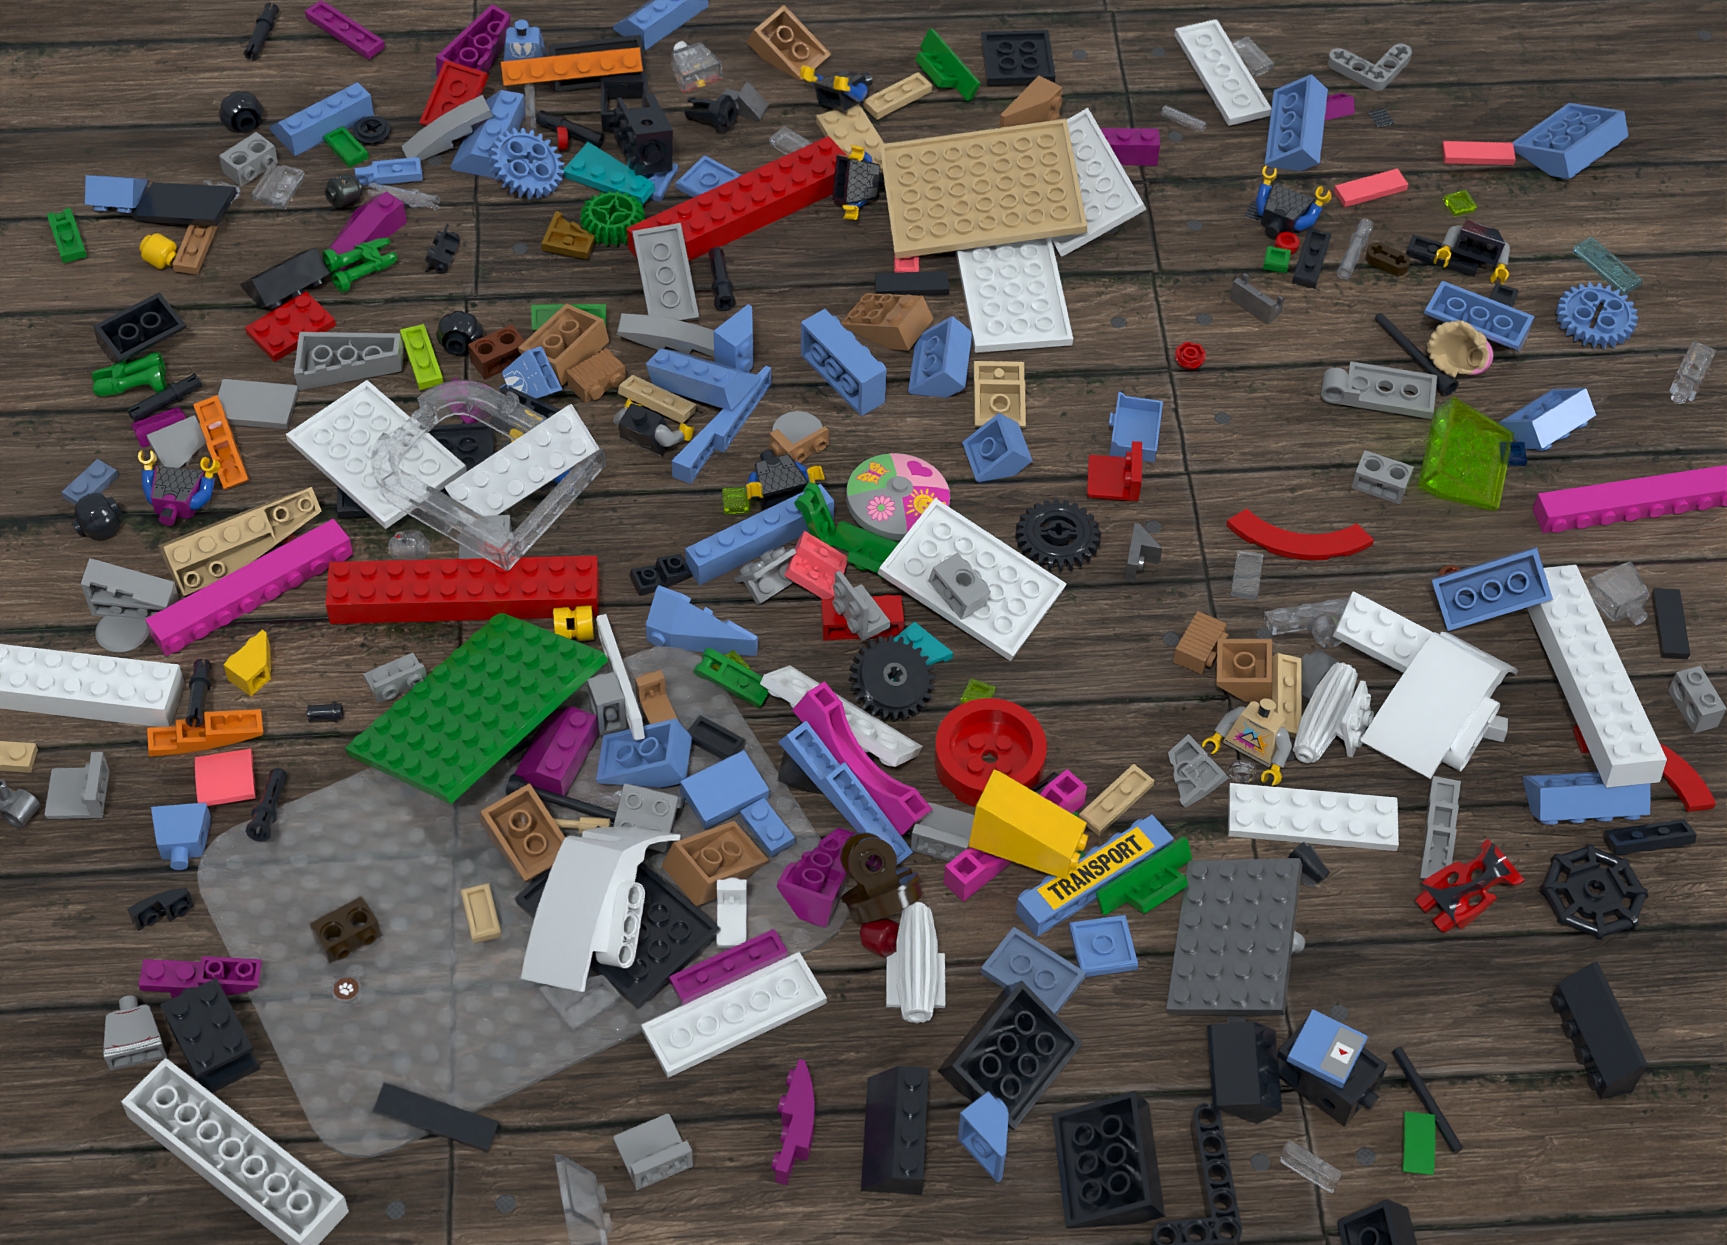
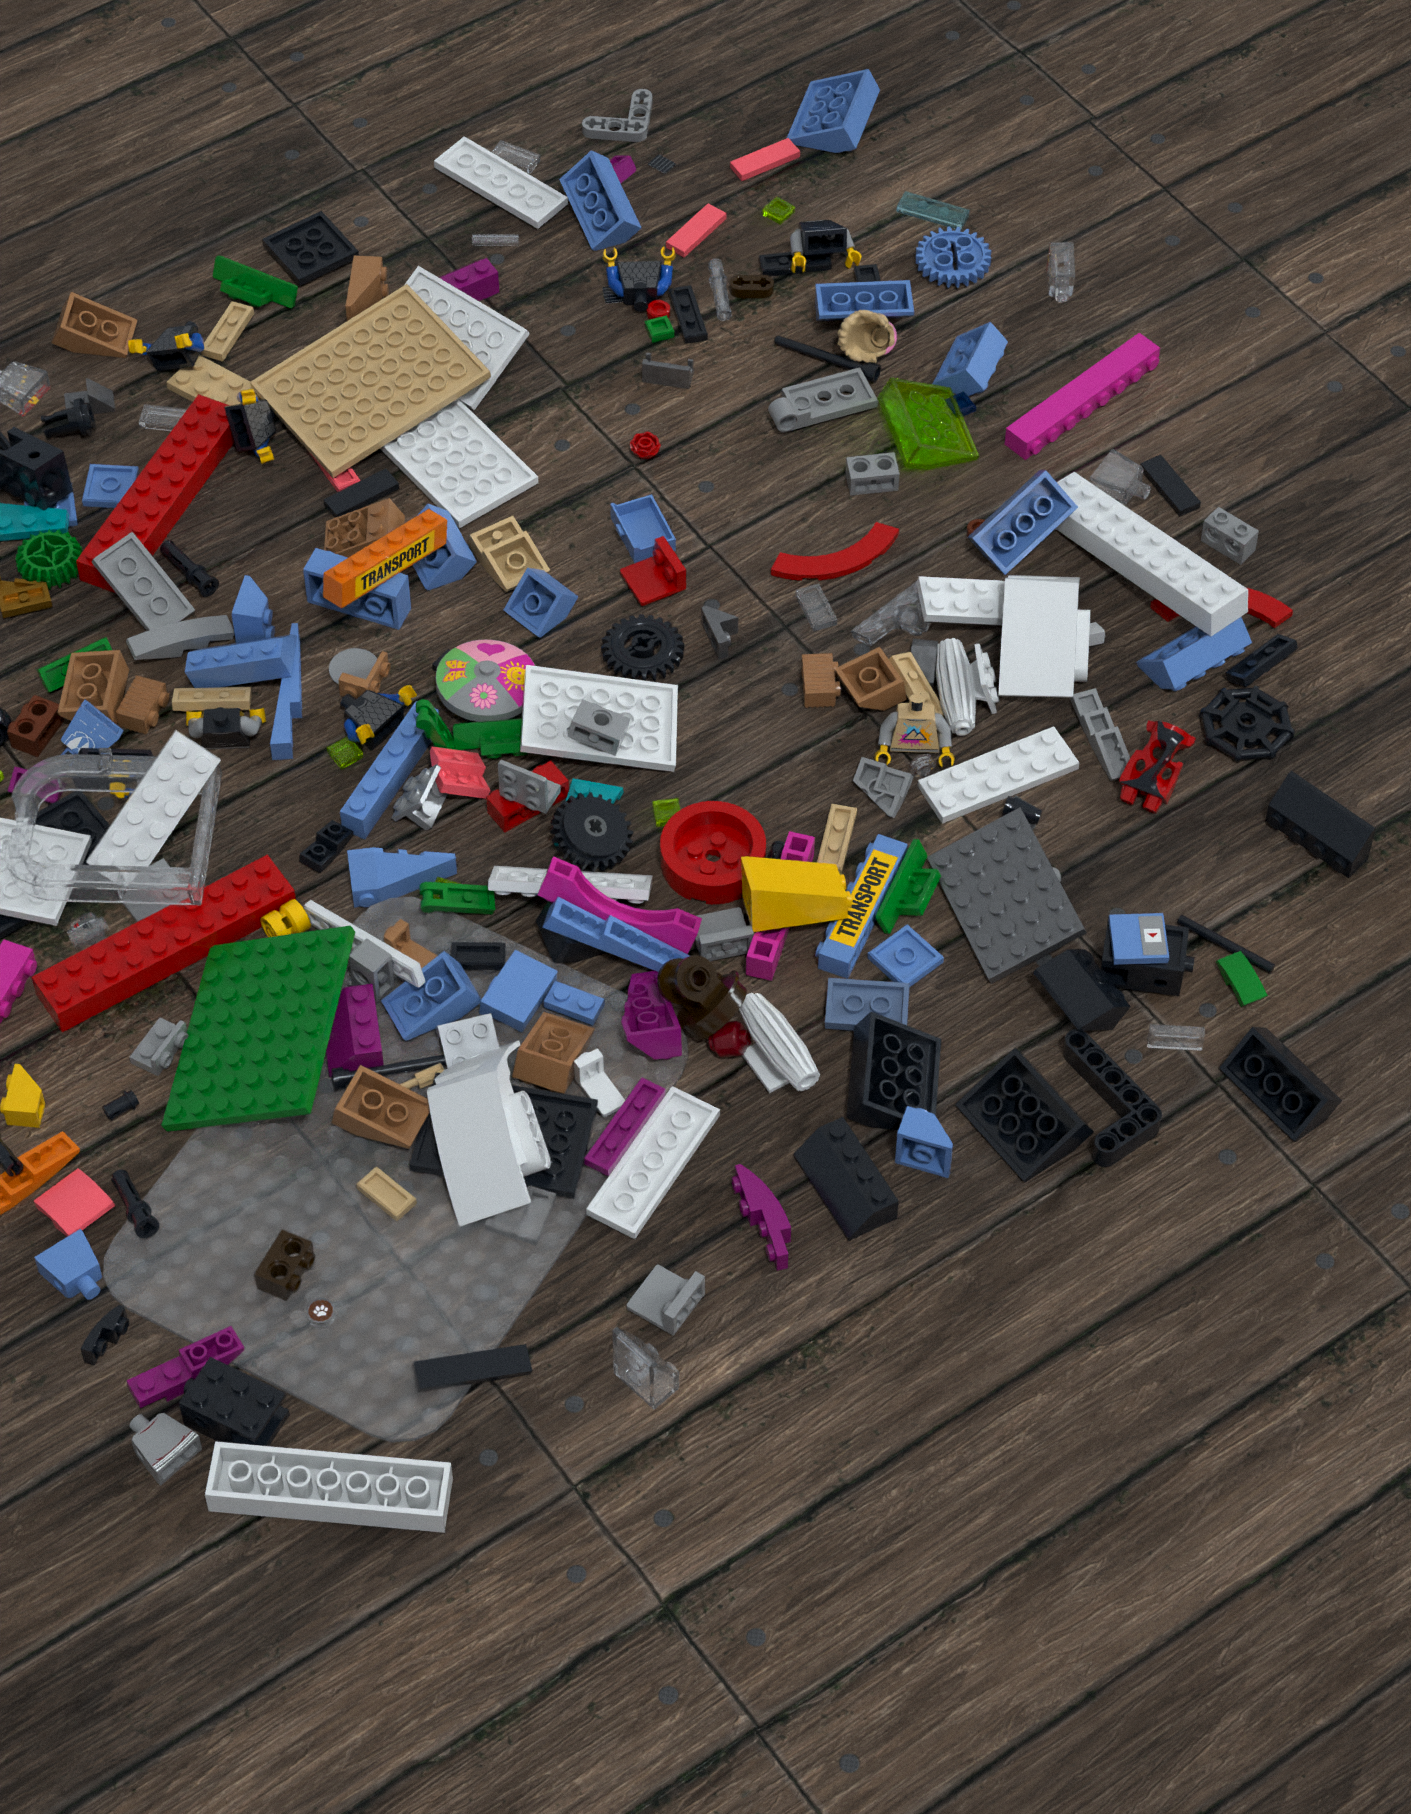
camera: 30 degrees left, 0 degrees up
(872, 344) = (384, 558): none -> orange brick

